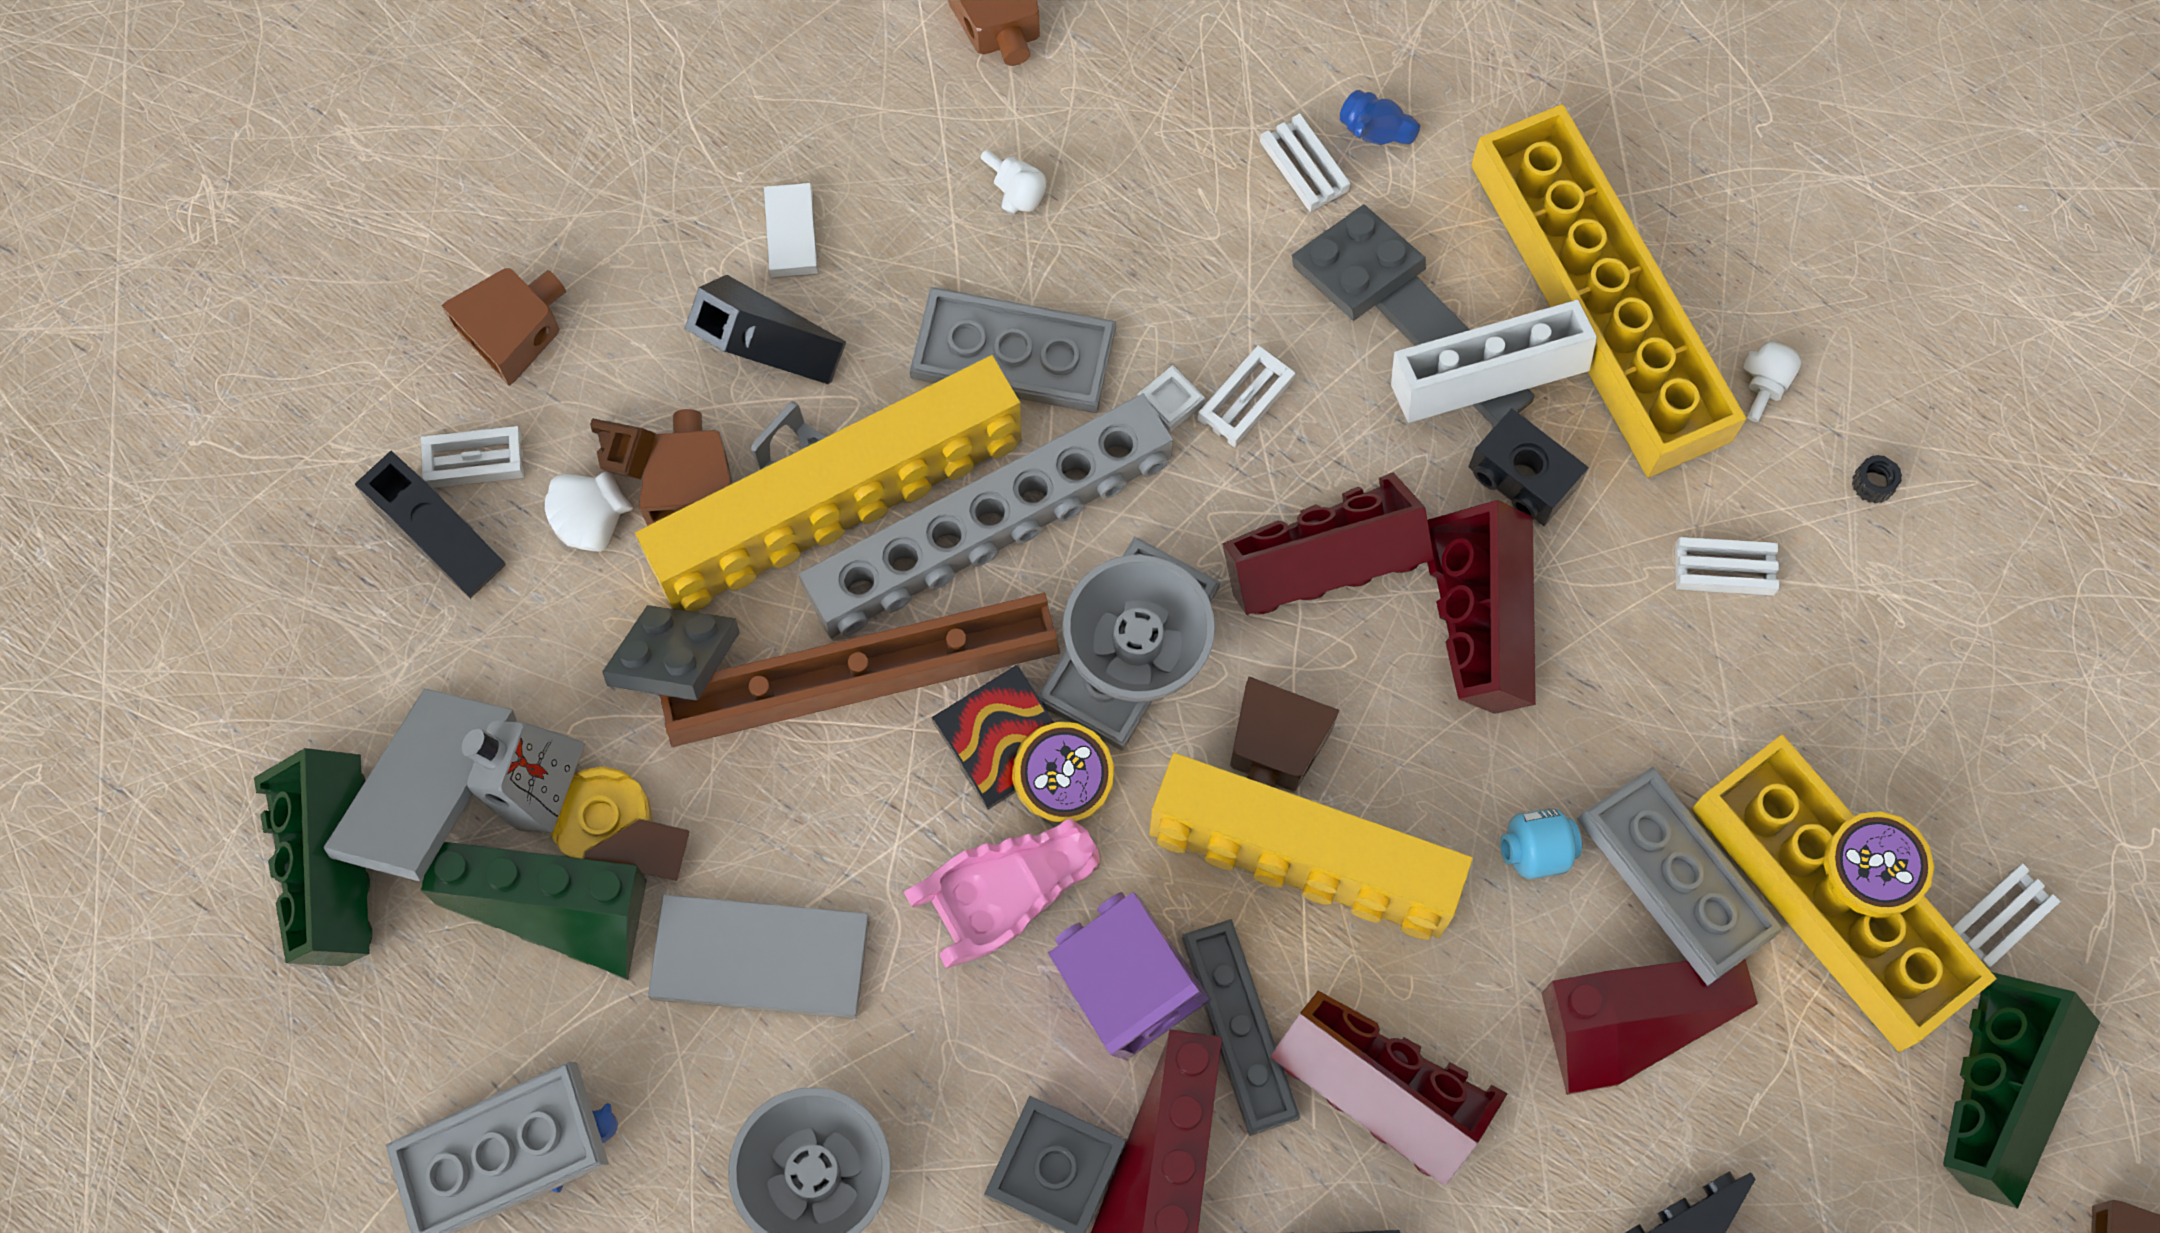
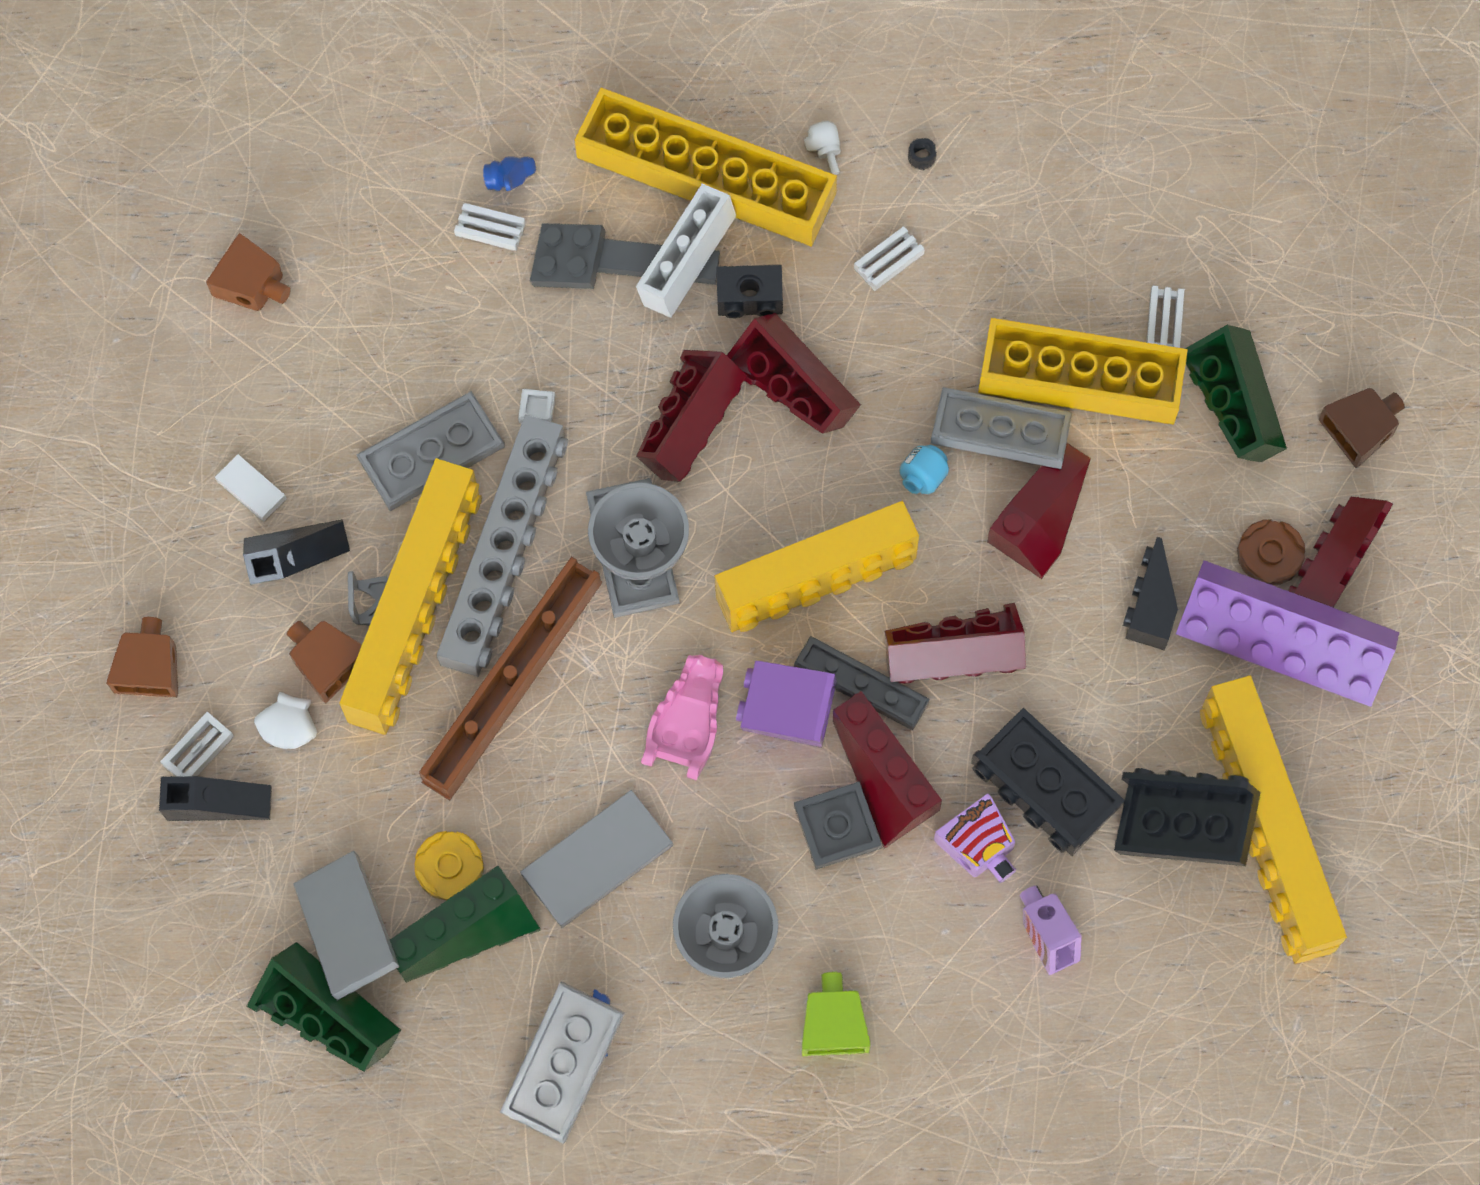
camera: 40 degrees left, 0 degrees up
(521, 772) = (393, 874): light grey torso -> none
(622, 448) = (278, 672): reddish brown tile -> none
(644, 843) = (487, 855): reddish brown tile -> none
(671, 652) = (409, 750): dark grey plate -> none
(988, 730) = (615, 647): slope -> none
(1019, 181) = (351, 360): white piece -> none
(1063, 772) = (662, 637): tile -> none
(1222, 425) = (575, 398): white tile -> none
(1279, 734) = (749, 526): reddish brown torso -> none
(1879, 864) = (1089, 341): tile -> none

